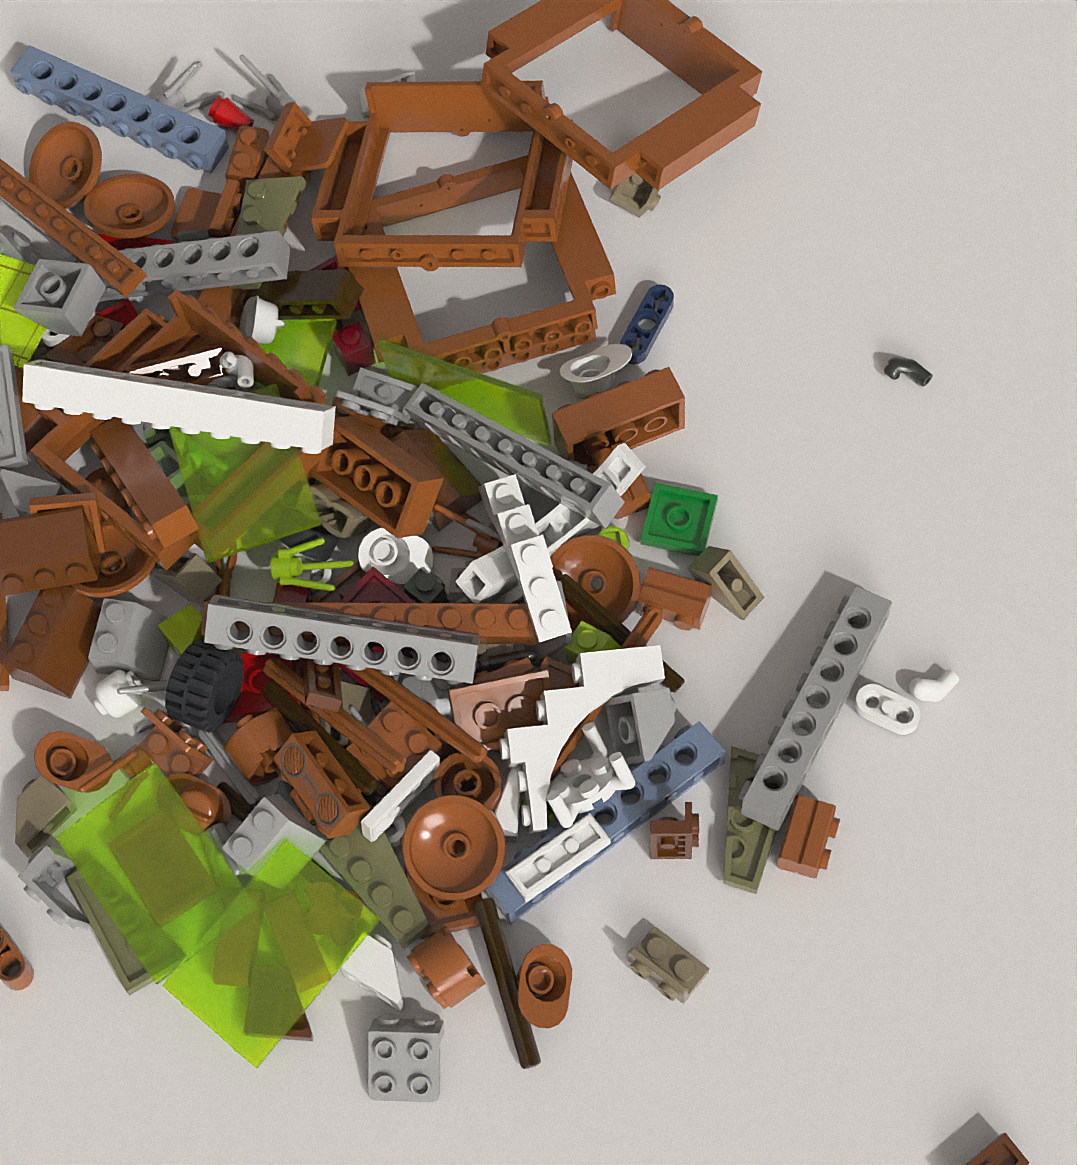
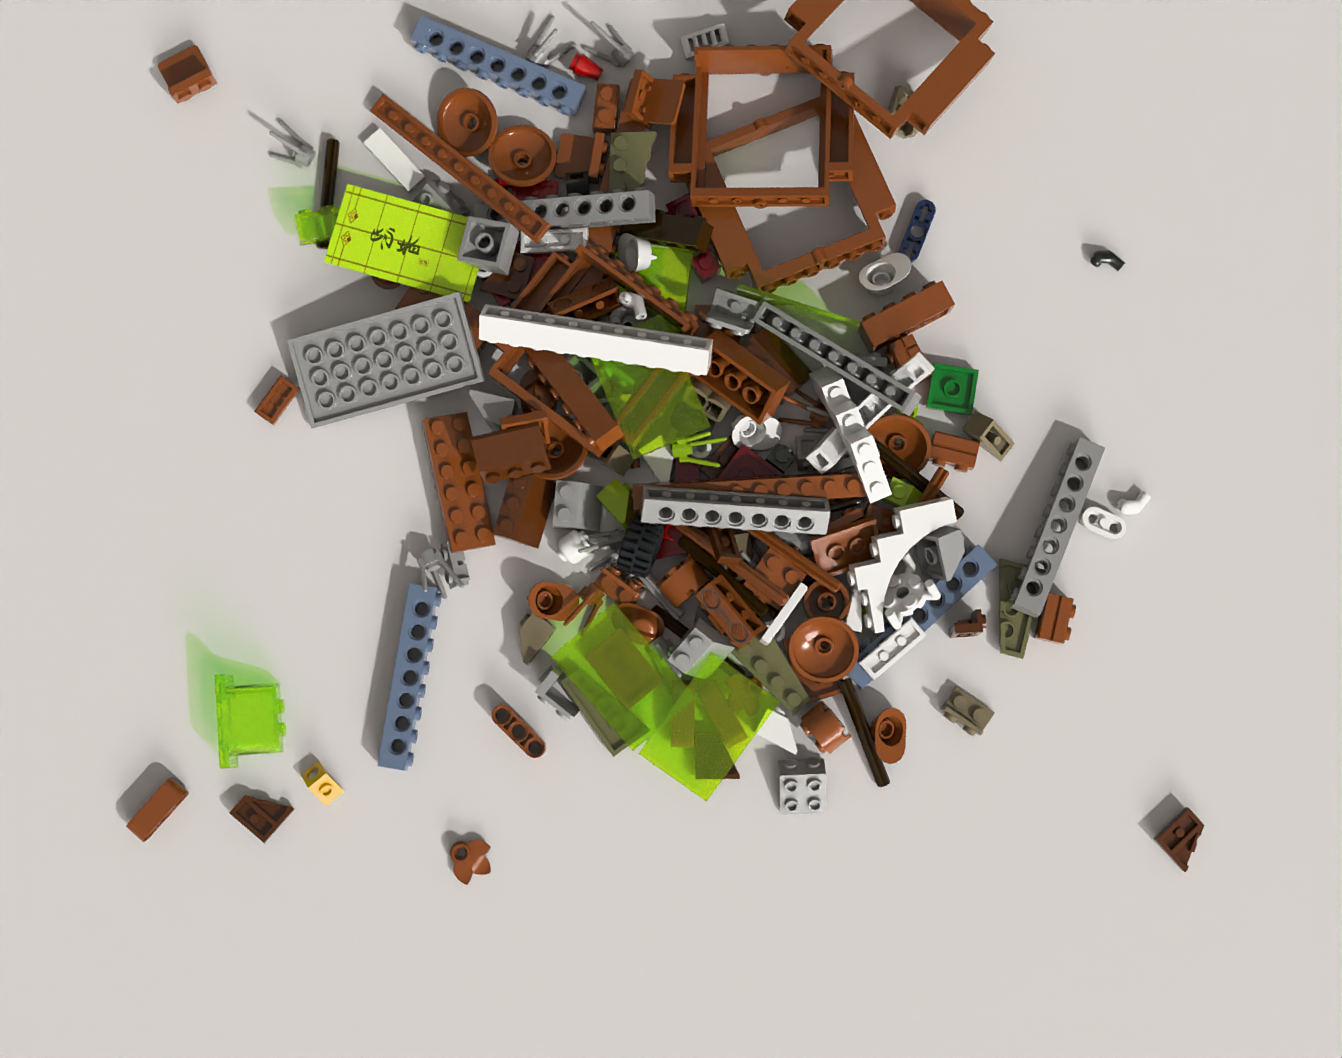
camera: 10 degrees left, 20 degrees up
(156, 301) = (555, 240): none -> white tile
(253, 578) = (660, 462): none -> white slope

